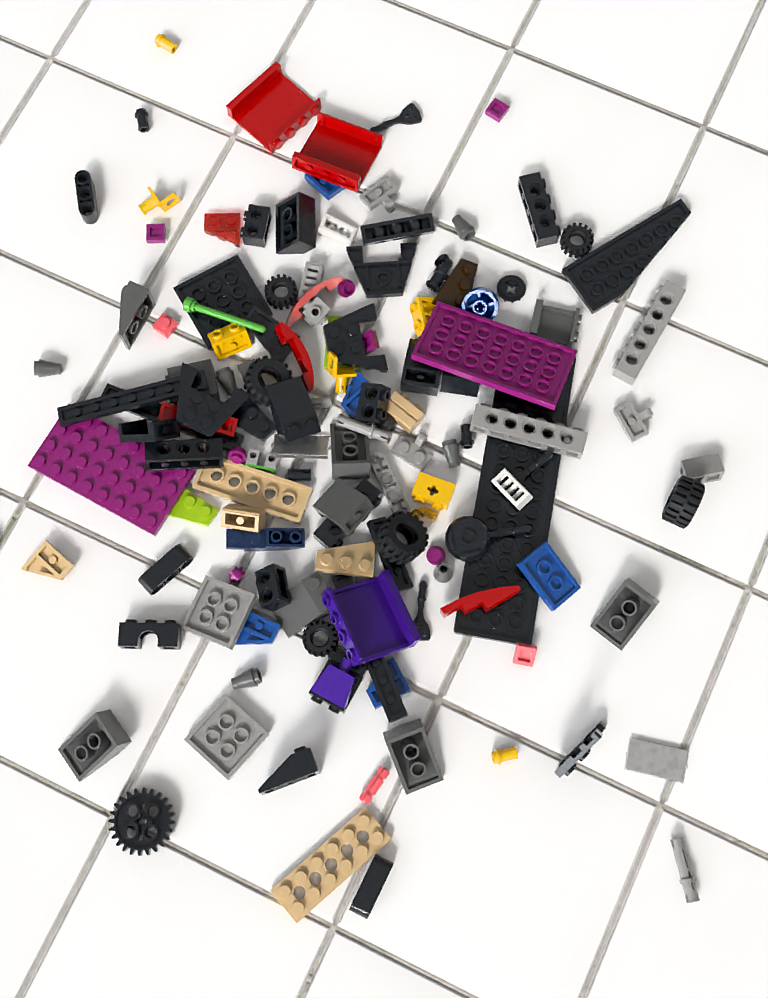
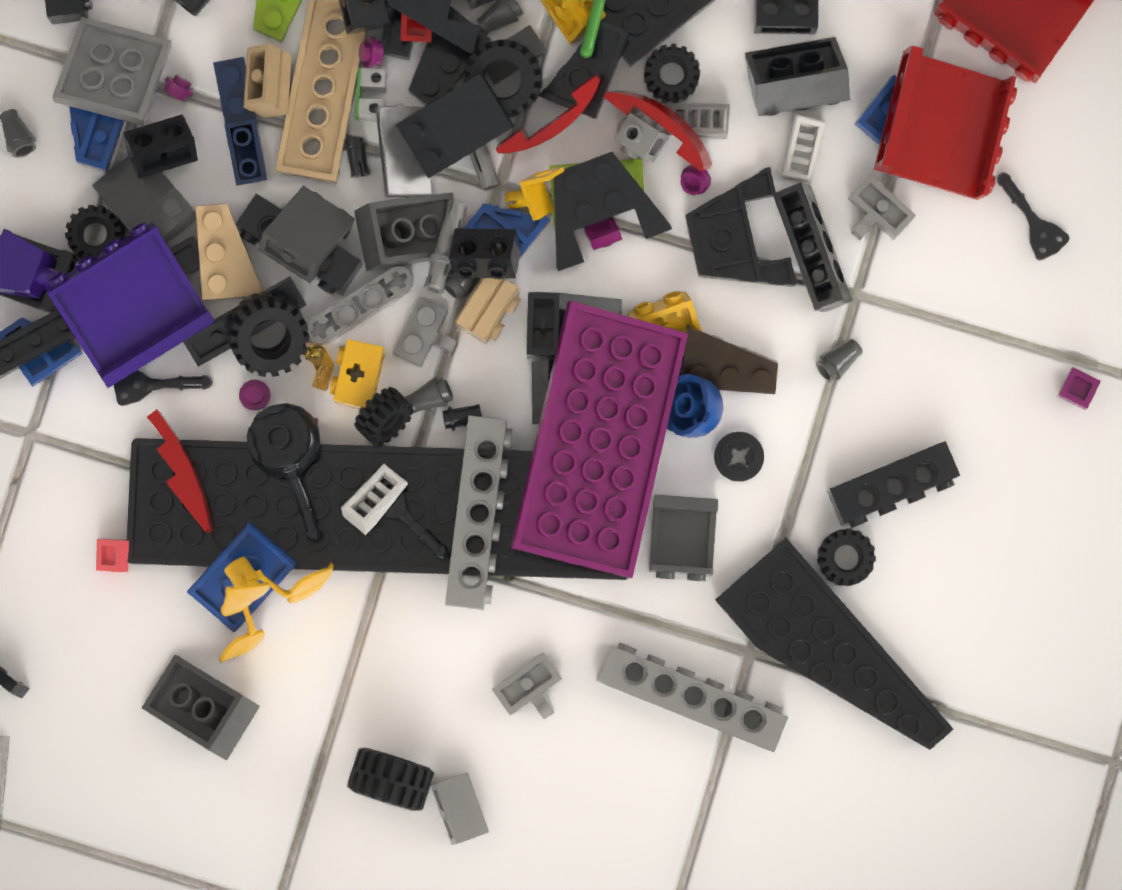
camera: 80 degrees right, 10 degrees up
(443, 264) = (749, 332): black connector -> none
(443, 577) = (234, 413): dark grey cone -> none
(462, 477) = (384, 416): none -> black tyre
(553, 568) = (249, 589): none -> yellow plant

